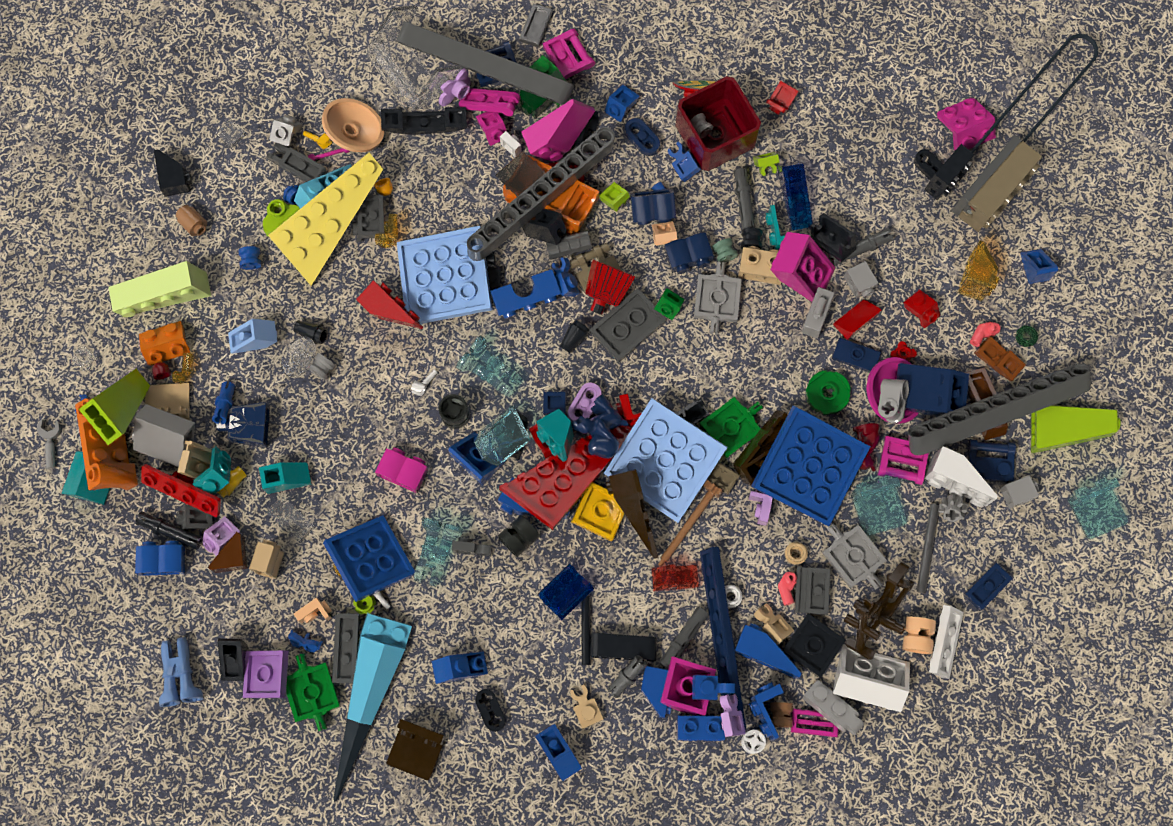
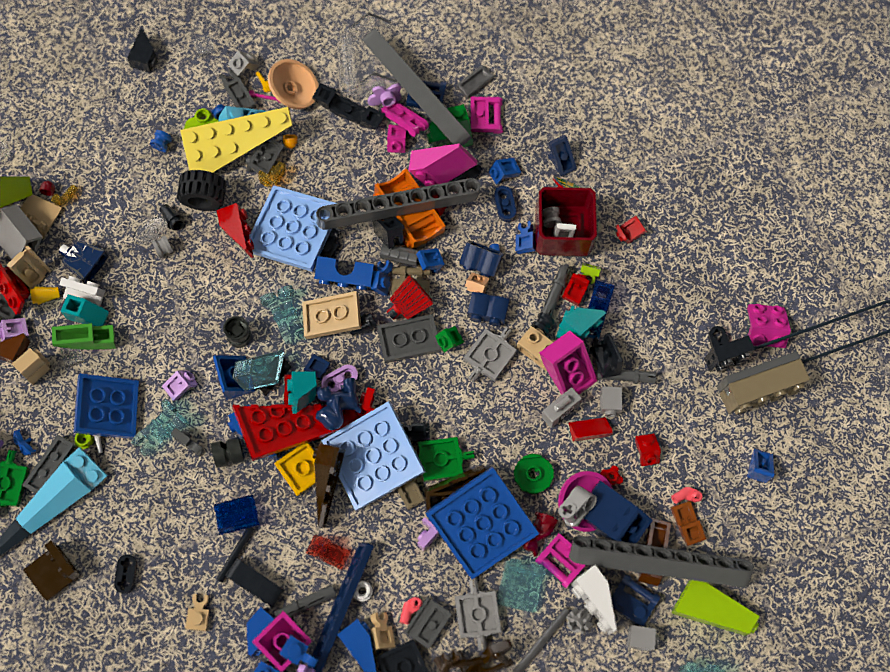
camera: 25 degrees right, 5 degrees down
(160, 289) = (83, 129): yellowish green wedge -> none
(163, 343) = (62, 169): orange bracket -> none
(191, 220) = (137, 93): medium nougat brick -> none
(218, 473) = (36, 282): teal bracket -> none
(223, 402) = (75, 234): blue pin -> none
(252, 336) = (128, 198): light blue slope -> none
(260, 457) = (86, 291): none -> white bracket
(301, 501) = (84, 336): none -> bright green slope
(309, 611) = (39, 423): light nougat bracket -> none
(328, 287) = (201, 190): none -> black tyre
(402, 470) = (172, 353): dark pink brick -> none
(419, 388) = (224, 301): white hand -> none
(426, 495) = (179, 384): none -> lavender bracket
(459, 667) = (122, 527): blue slope -> none
(511, 143) = (402, 157): white plate -> none
(520, 173) = (392, 180): clear smoke piece -> none
(538, 343) = (331, 315): none -> tan plate
(558, 752) = (155, 637): blue slope -> none
(604, 234) = (430, 259): none -> blue bracket
(614, 196) = (456, 236): lime tile -> none
(627, 676) = (242, 607): dark grey pin -> none
(670, 57) = (561, 155): none -> dark blue slope
(712, 491) = (396, 501): medium nougat piece -> none
(721, 135) = (564, 230): none -> white slope
(725, 250) = (517, 321): sand green wheel -> none
(763, 186) = (576, 288): none -> red bracket
(791, 216) = (581, 321): none -> teal slope
(796, 546) = (433, 579): tan plate -> none
(855, 355) = (572, 456): dark blue plate -> none
(979, 274) = (707, 446): clear yellow slope -> none
(1026, 330) = (726, 515): clear green plate -> none

